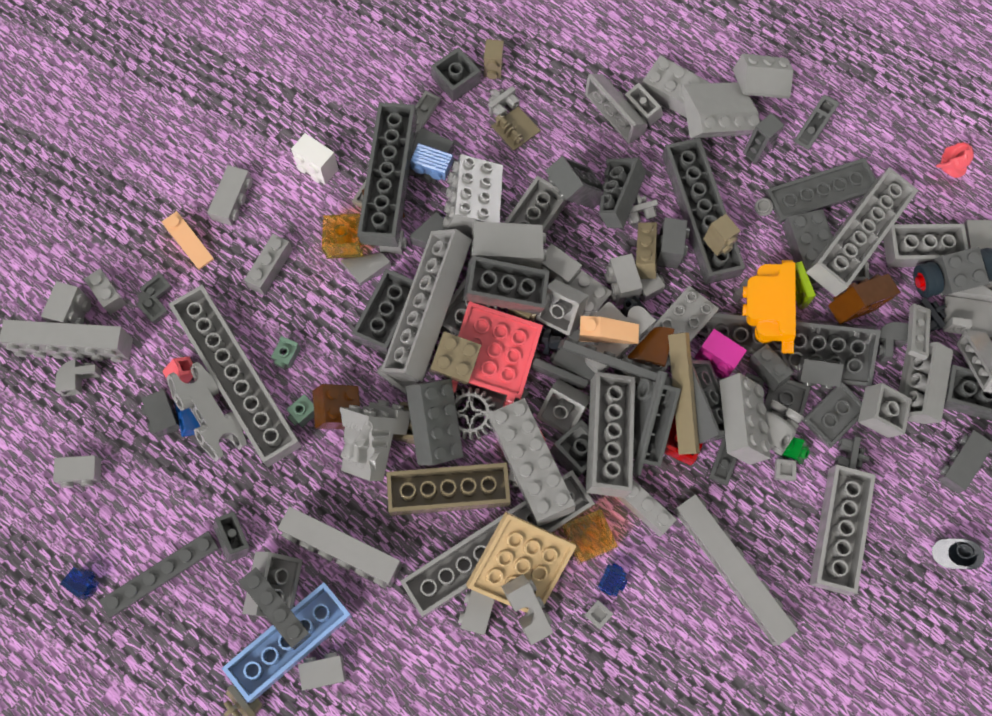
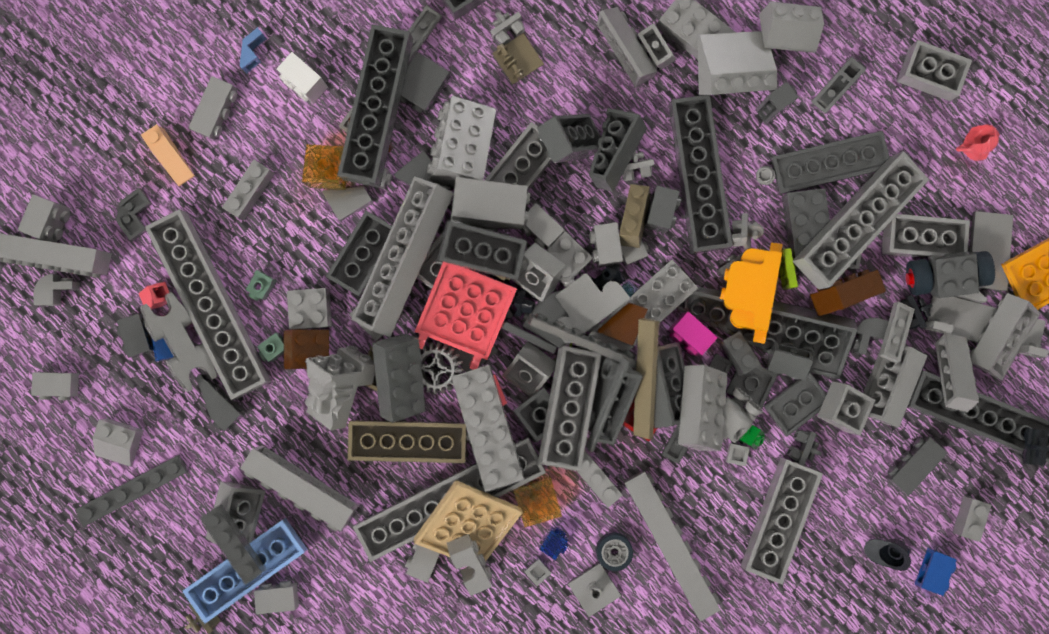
camera: 10 degrees right, 15 degrees up
(80, 583) = (57, 493): clear blue brick -> none
(105, 291) = (83, 203): light grey brick -> none
(142, 523) = (116, 441): none -> light grey slope
(231, 537) = (198, 465): dark grey brick -> none
(250, 475) = (219, 405): none -> dark grey slope
(262, 147) = (250, 42): none -> medium blue slope
(336, 366) = (309, 309): none -> light grey brick
(431, 162) = (422, 95): medium blue brick -> none
(455, 358) = (424, 319): dark tan brick -> none
(607, 330) = (580, 306): light nougat slope -> none
(661, 627) = (594, 589): none -> light grey tile
(682, 574) = (622, 557): none -> wheel
(722, 235) = (712, 214): dark tan brick -> none
(752, 257) = (746, 232): none -> light grey hips
(900, 102) = (934, 70): none -> light grey brick

